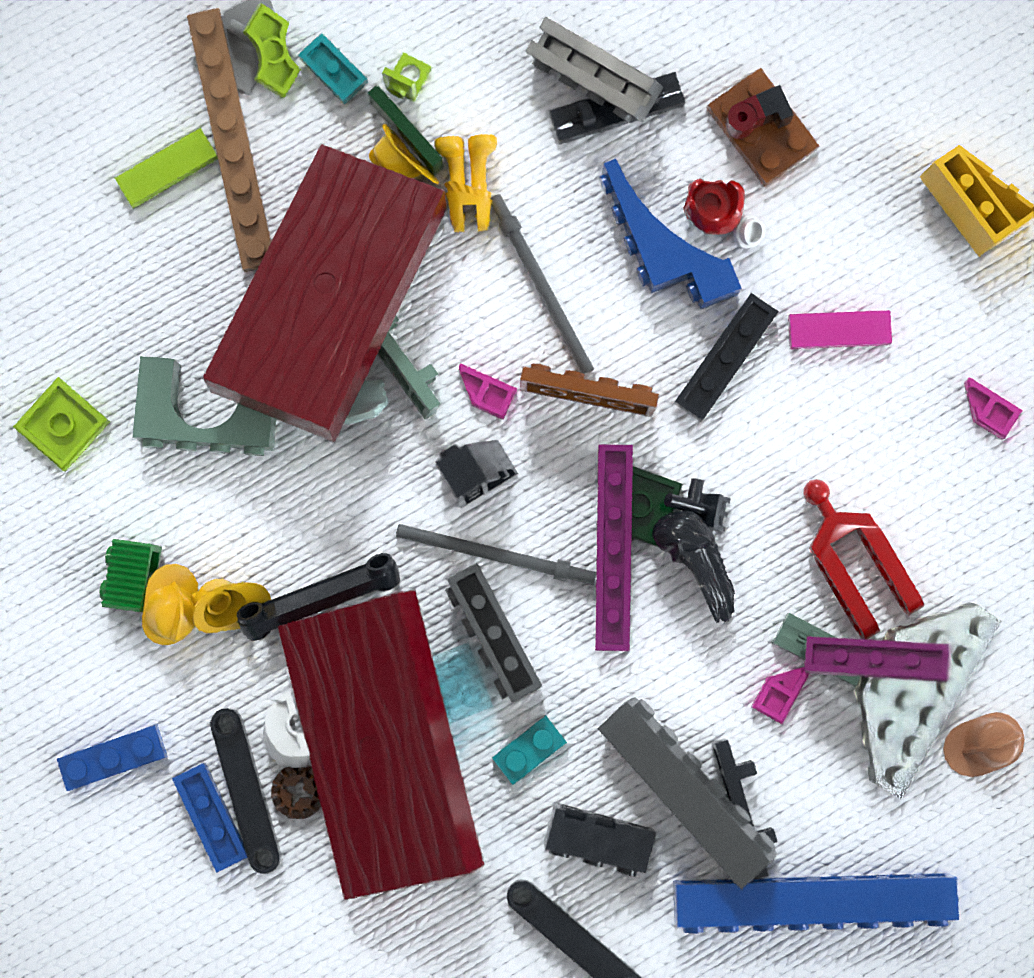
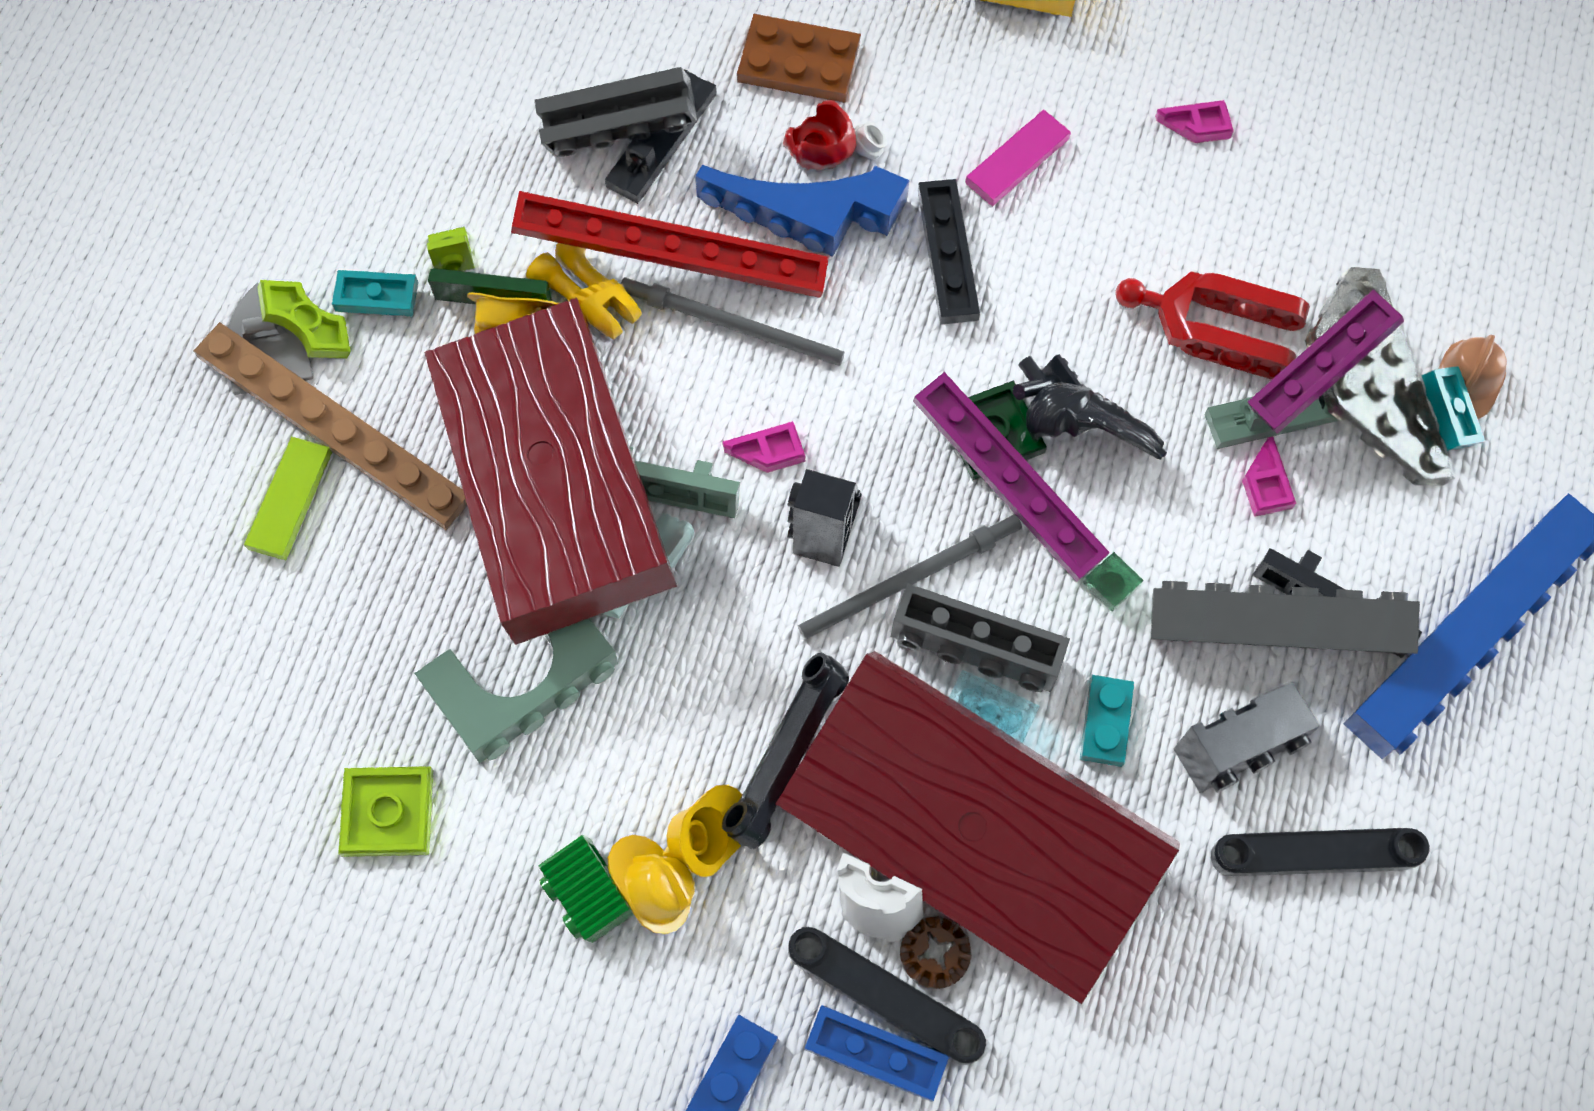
camera: 45 degrees left, 15 degrees down
(541, 200) = (669, 244): none -> red plate
(599, 393) = (862, 363): dark orange plate -> none
(615, 669) = (1113, 581): none -> clear green plate
(758, 111) = (787, 38): leg -> none
(946, 756) = (1452, 408): none -> teal plate

